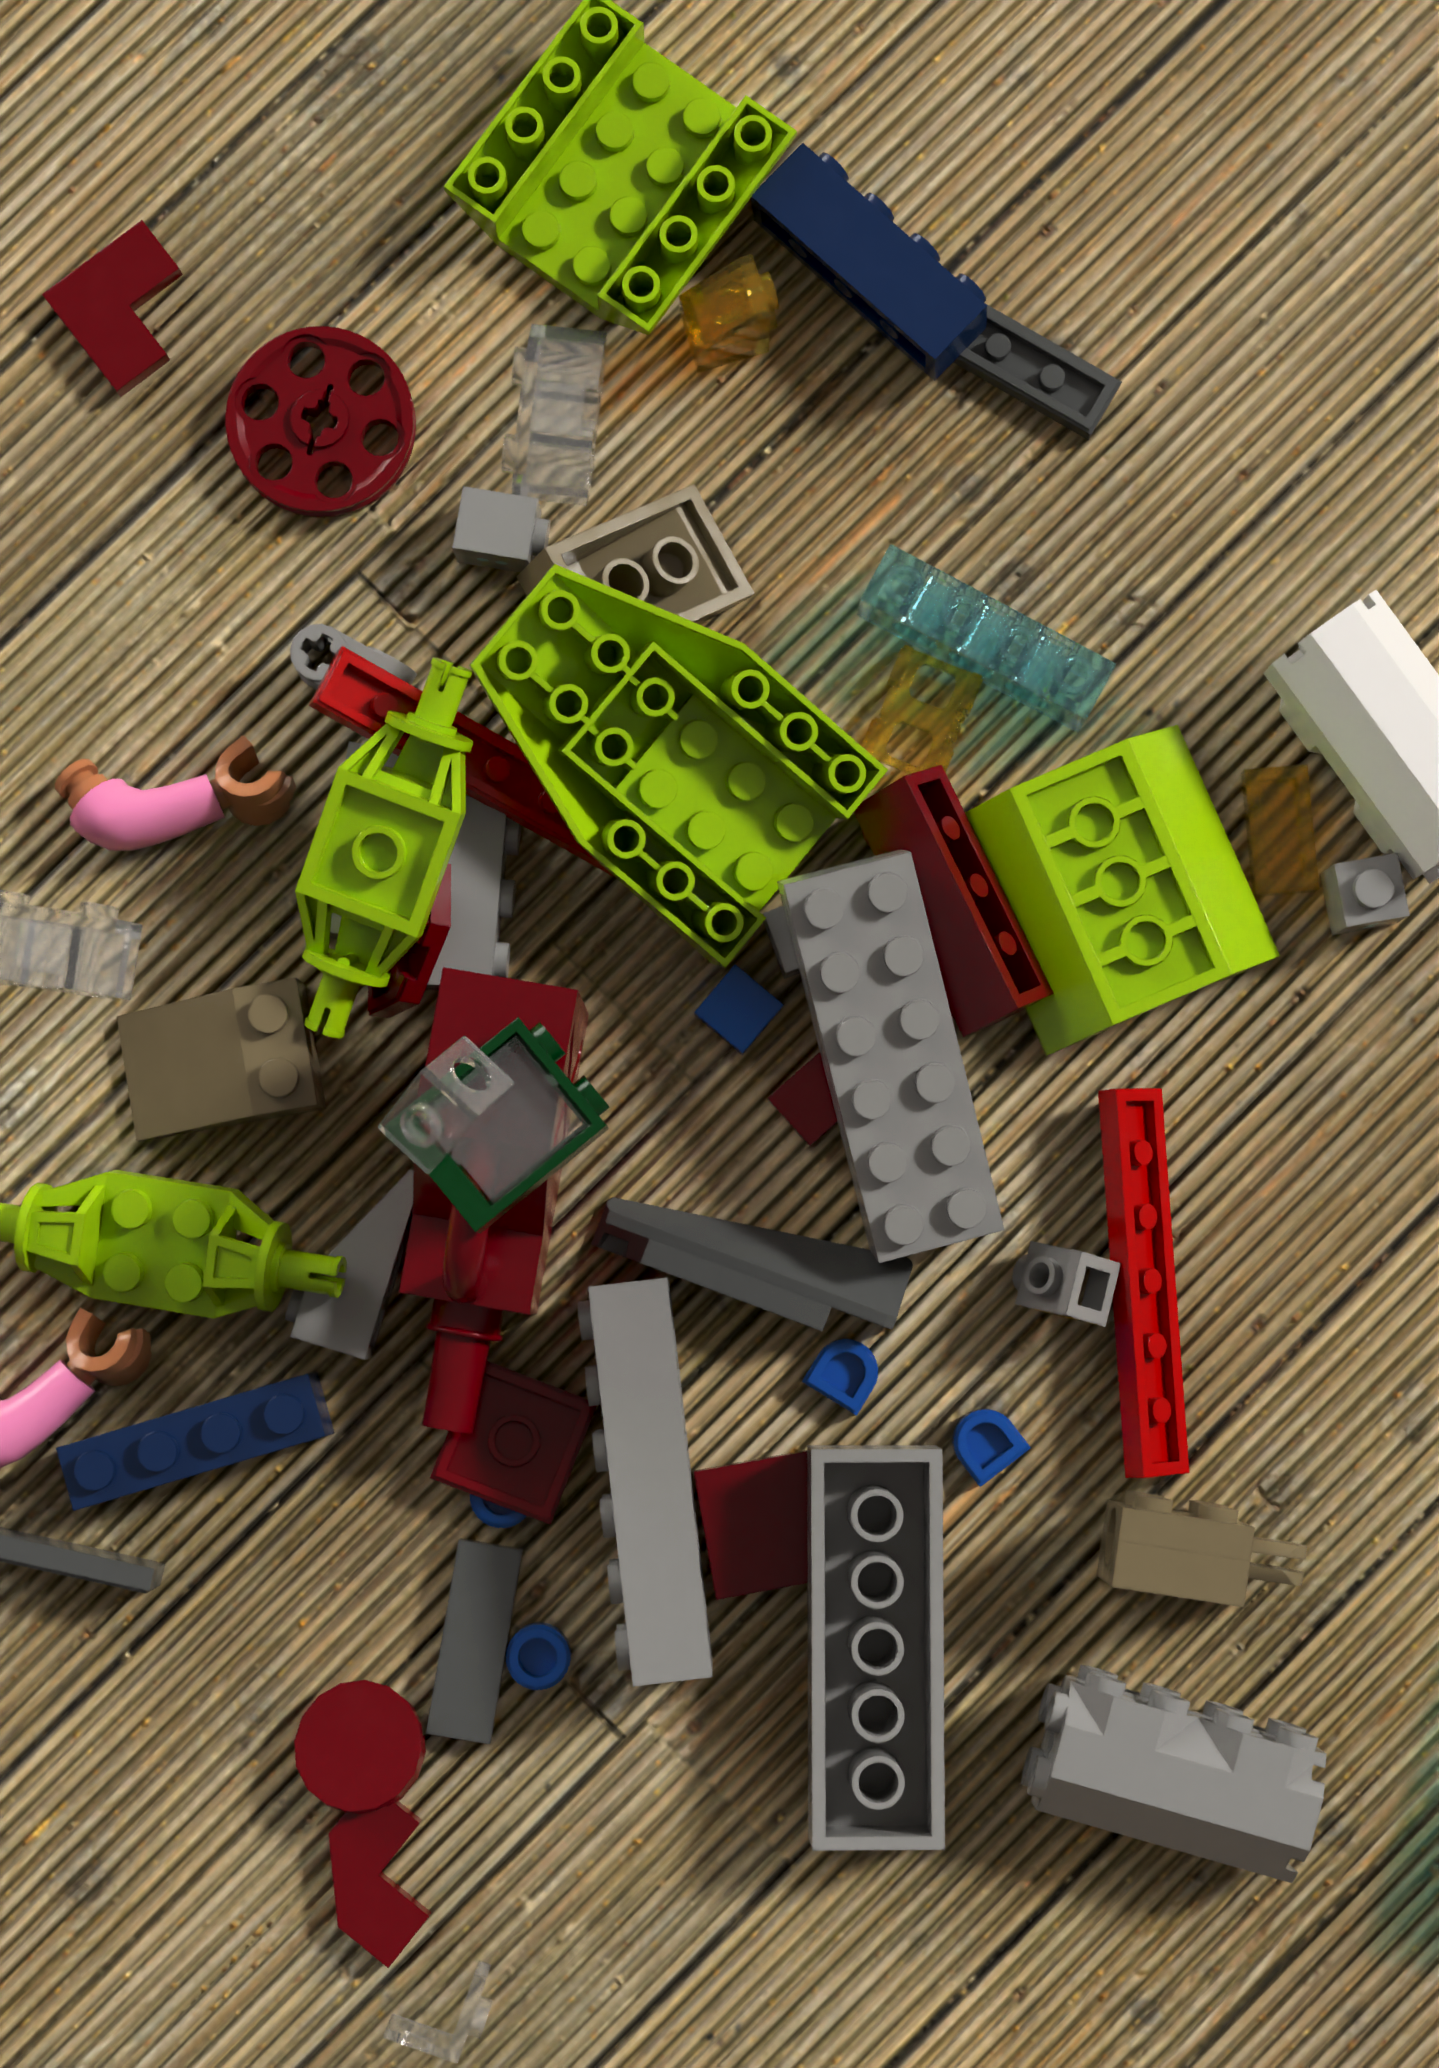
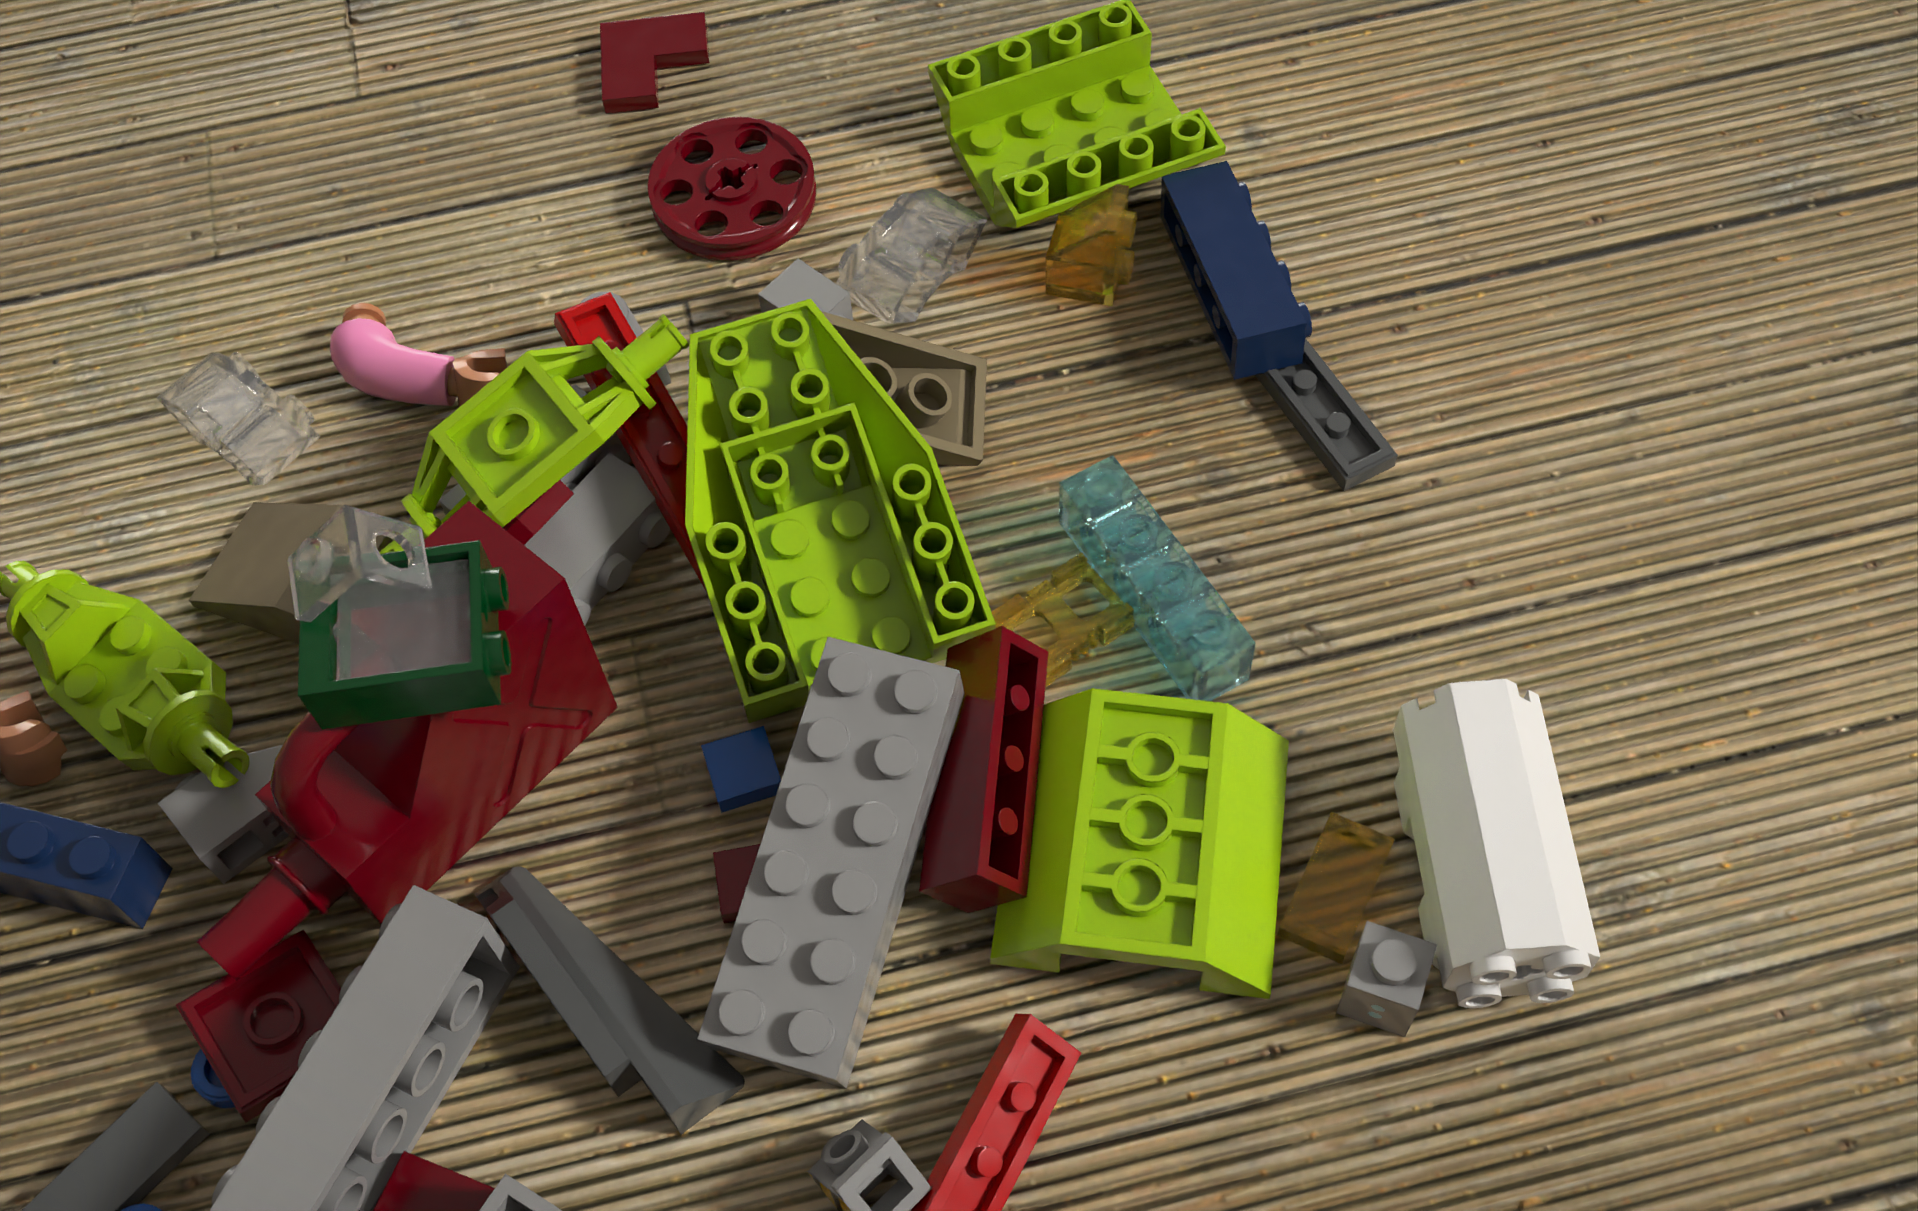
camera: 35 degrees right, 25 degrees down
(844, 1373) = (608, 1148): blue tile -> none

